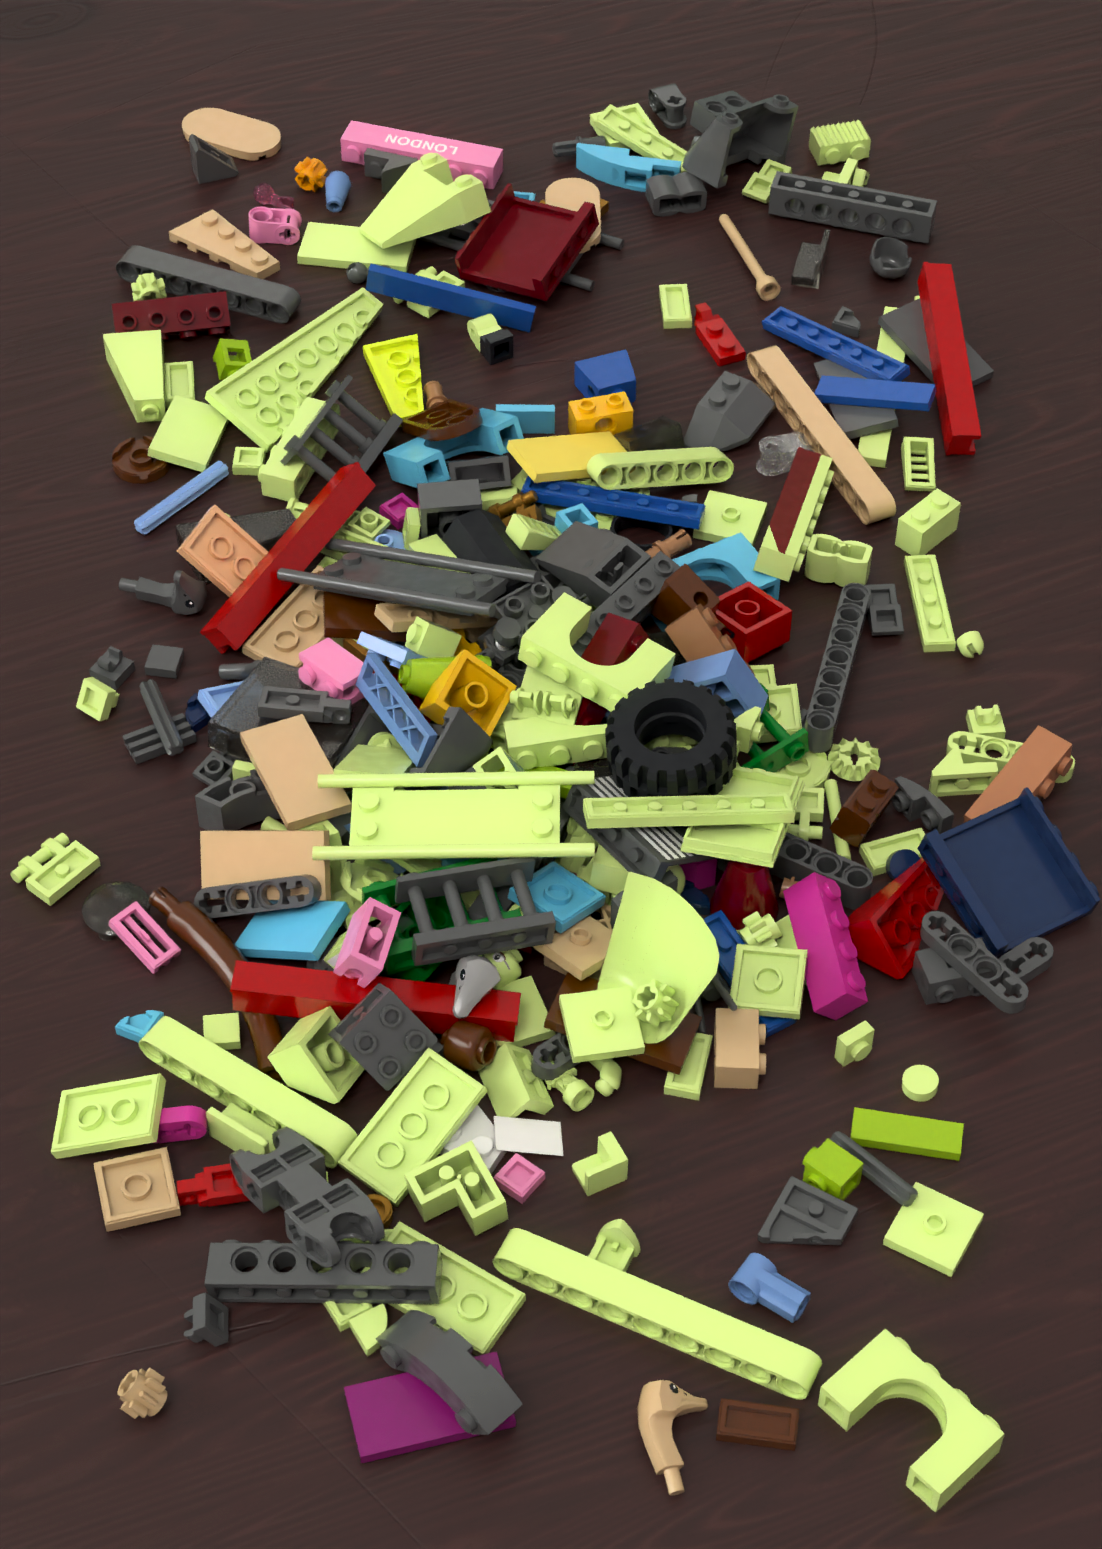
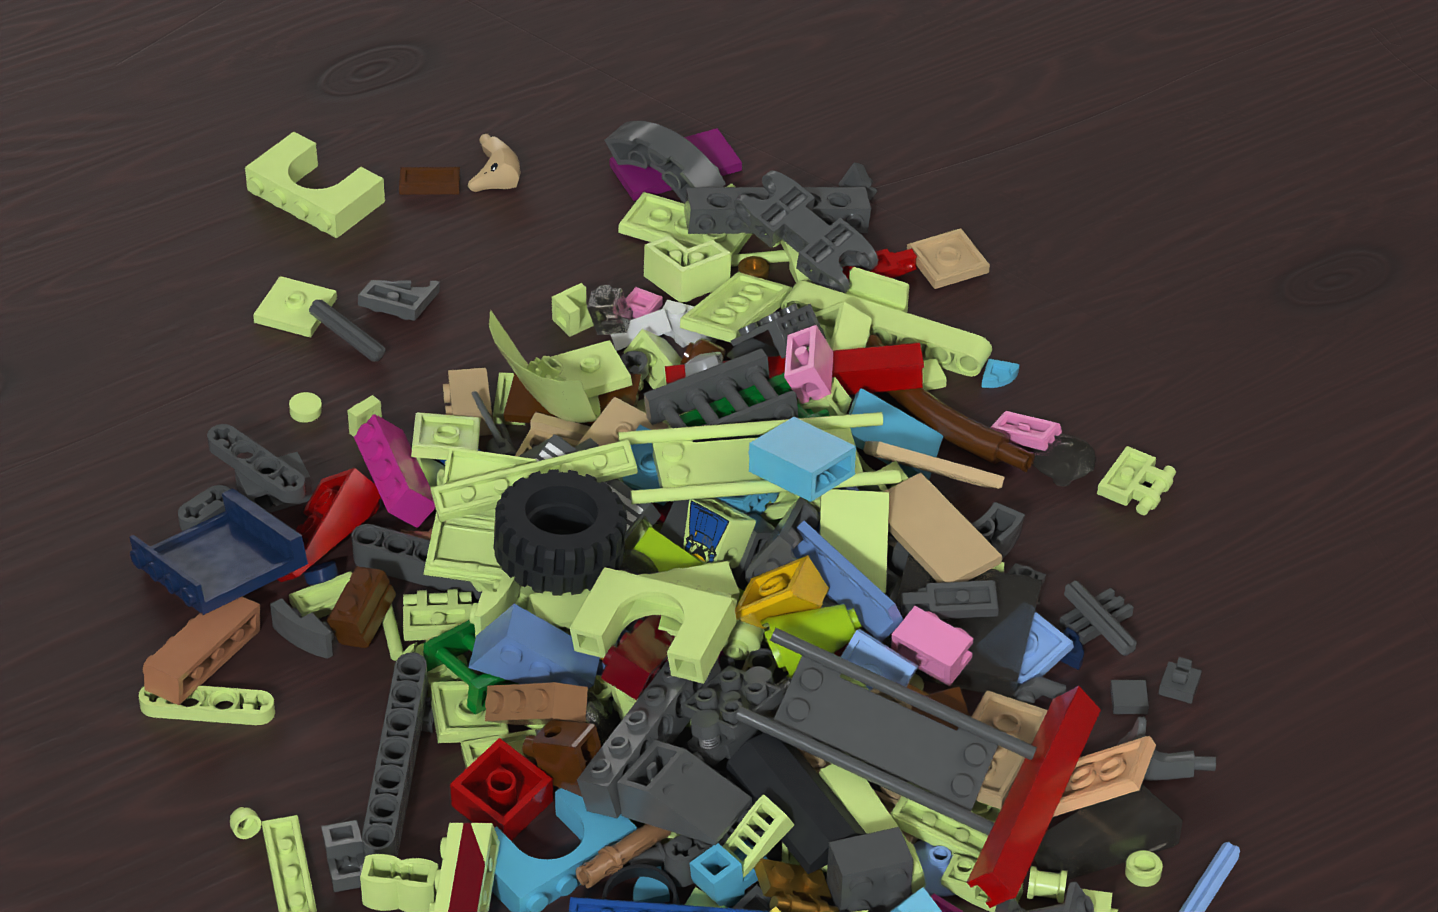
camera: 170 degrees right, 5 degrees down
(96, 699) = (1176, 635): yellowish green tile -> none
(108, 1116) = (991, 291): yellowish green tile -> none
(142, 1393) = (887, 137): tan gear -> none
(182, 1124) = (936, 295): dark pink beam -> none
(257, 896) = (931, 448): dark grey beam -> none
(416, 776) = (802, 459): none -> medium azure brick
(561, 1146) = (606, 304): none -> clear smoke brick
(616, 1245) = (556, 263): yellowish green tile -> none
(658, 1313) = (516, 225): yellowish green beam -> none
(760, 1283) = (433, 251): medium blue piece -> none
(832, 1169) = (382, 322): lime brick -> none
(841, 761) = (359, 686): yellowish green gear -> none
(907, 1134) = (317, 367): lime tile -> none
(955, 778) = (266, 662): yellowish green slope -> none
(986, 721) = (231, 737): yellowish green tile -> none

